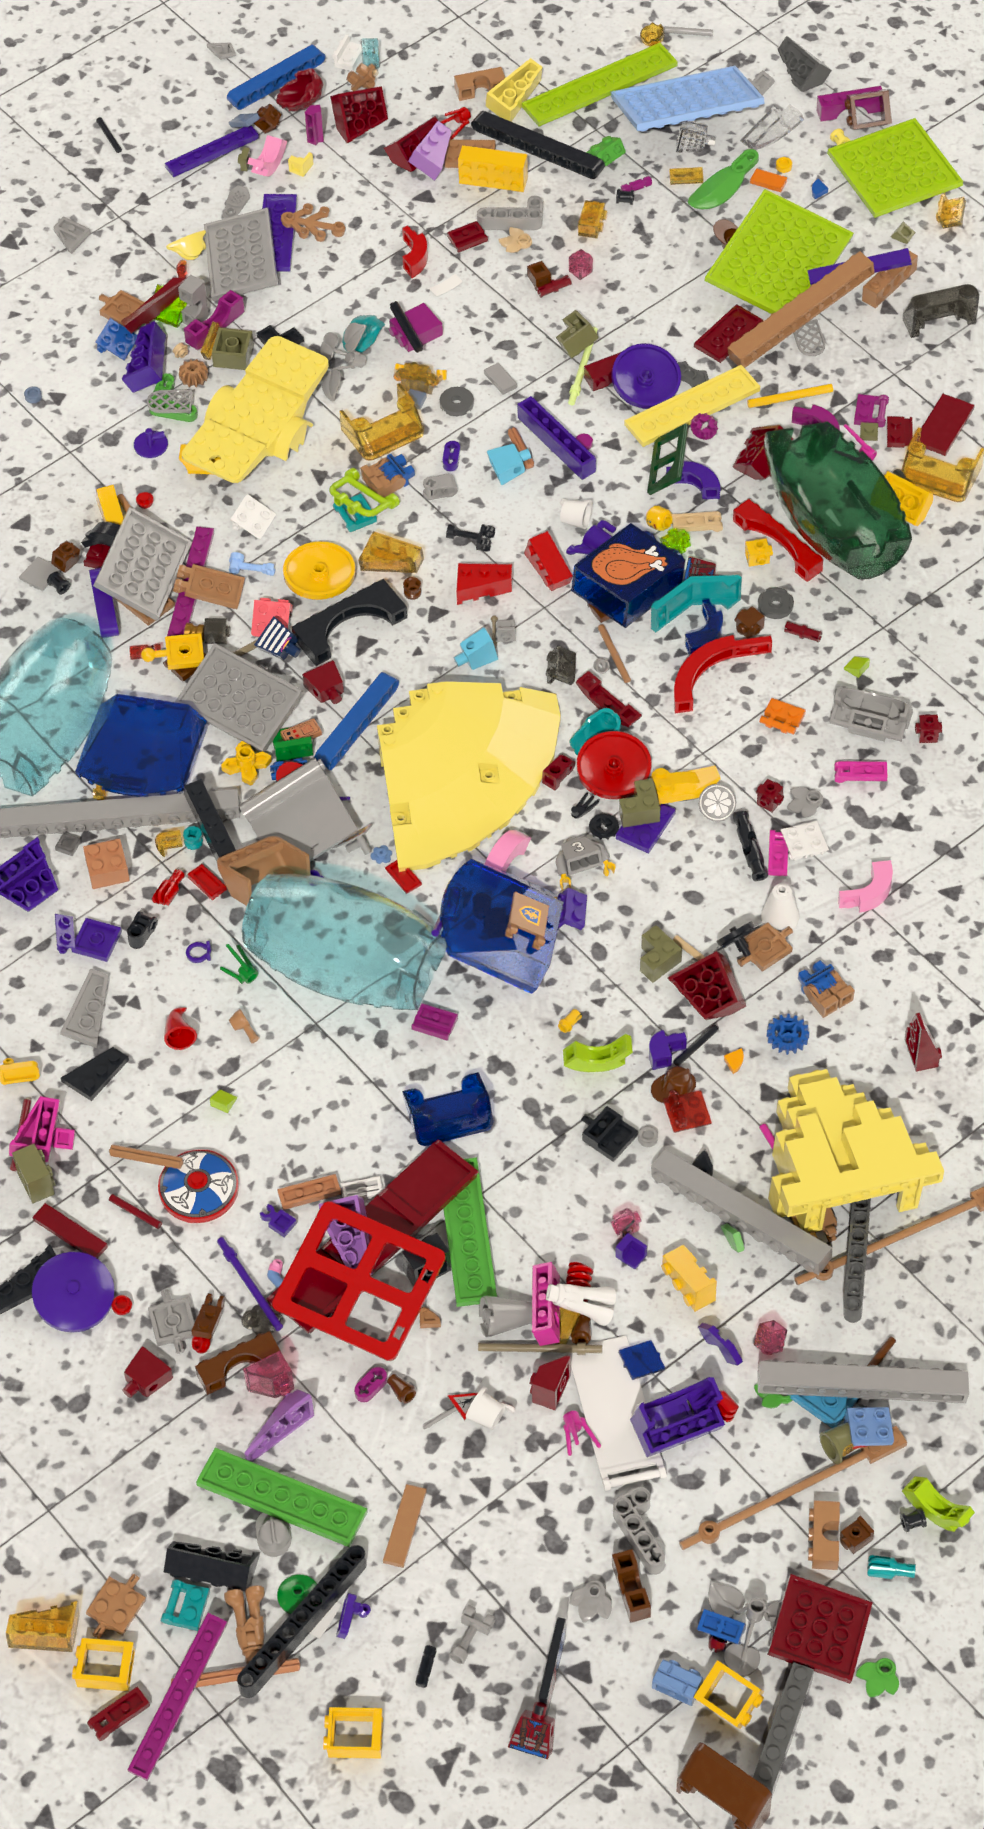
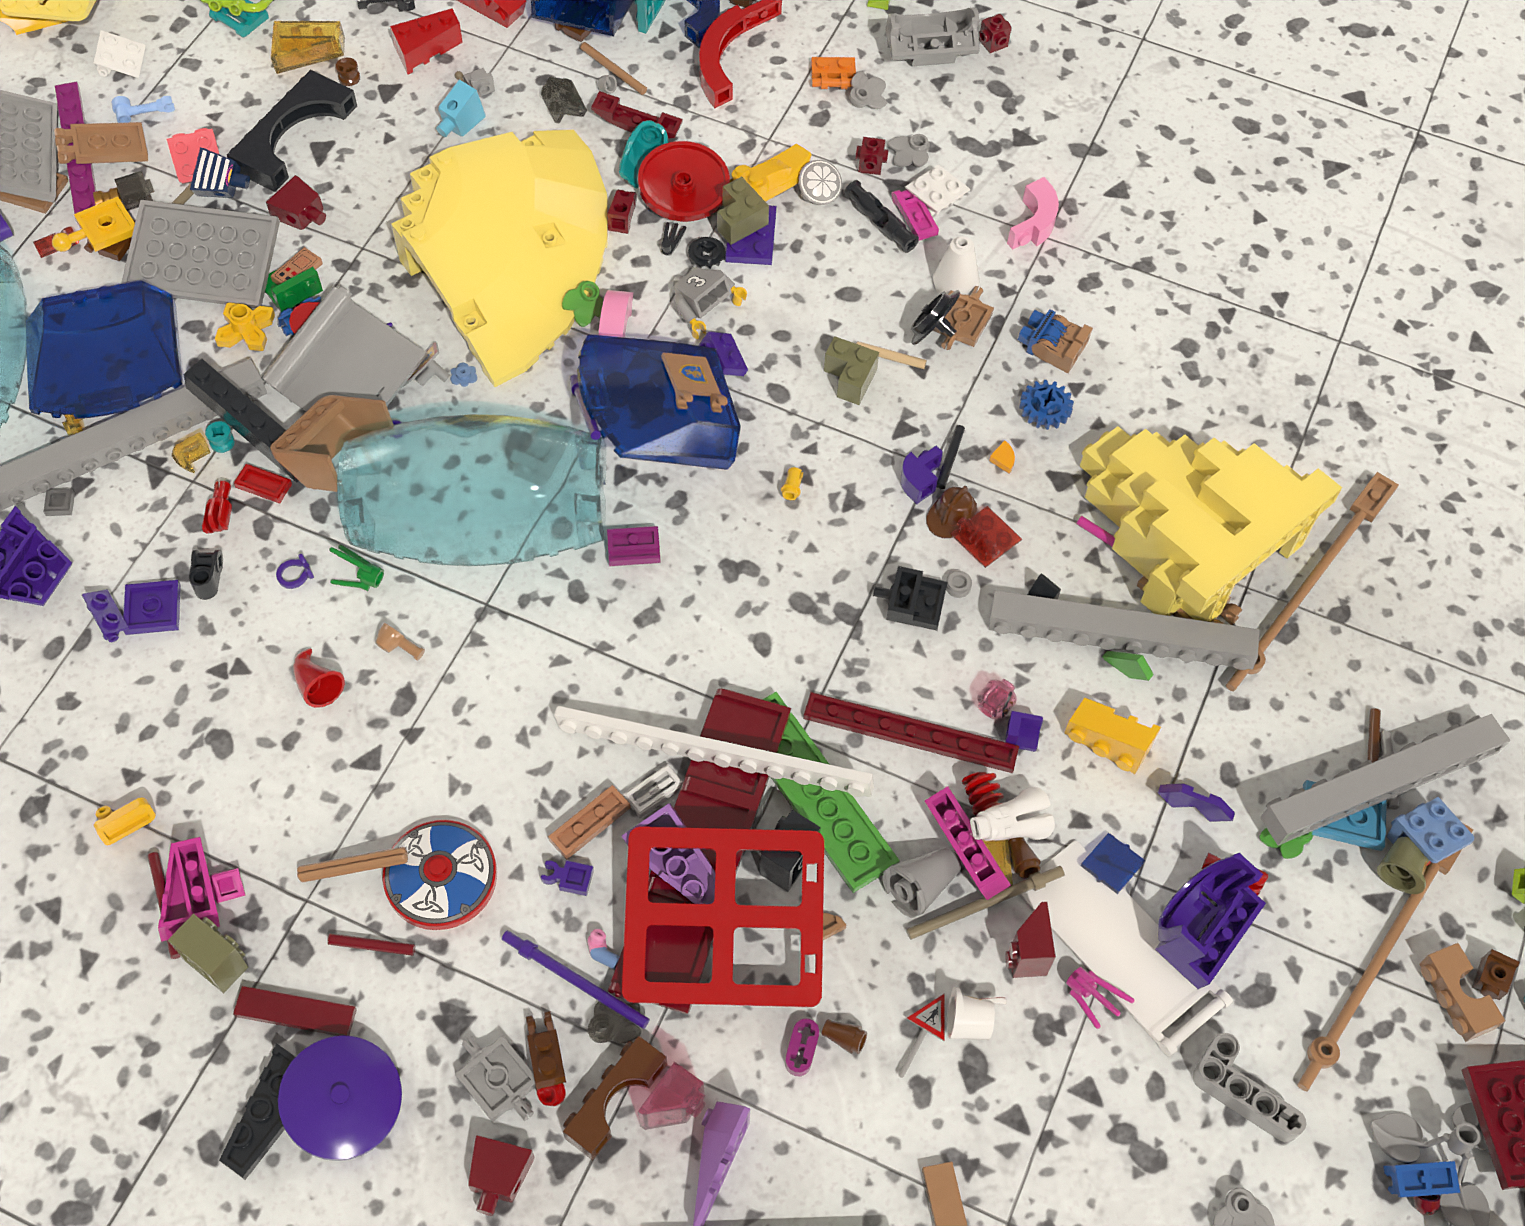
camera: 30 degrees left, 5 degrees up
(86, 1013) = (182, 705): light grey wing -> none
(96, 1073) = (231, 780): black wing -> none
(106, 863) = (121, 507): nougat brick -> none
(121, 1305) = (416, 1085): red plate -> none
(222, 1101) = (417, 748): lime slope -> none
(319, 570) = (228, 85): yellow dish -> none
(357, 720) = (357, 231): blue beam -> none
(405, 879) = (506, 392): red tile -> none
(411, 1178) = (715, 751): none -> white plate
(450, 1114) = (714, 649): clear blue windscreen -> none
(489, 833) = (583, 306): none -> bright green plate
(555, 1222) = (911, 732): none -> dark red tile
(597, 1059) = (846, 517): lime arch -> none
(630, 1587) = (1300, 1193): reddish brown arch -> none
(710, 987) = (931, 384): dark red wedge -> none
(770, 1337) = (1248, 769): clear pink brick -> none
(802, 741) = (867, 91): none -> light grey plate
(858, 1231) = (1291, 641): dark grey beam -> none
(860, 771) = (950, 99): dark pink plate -> none
(921, 1045) = (1203, 356): dark red wedge -> none

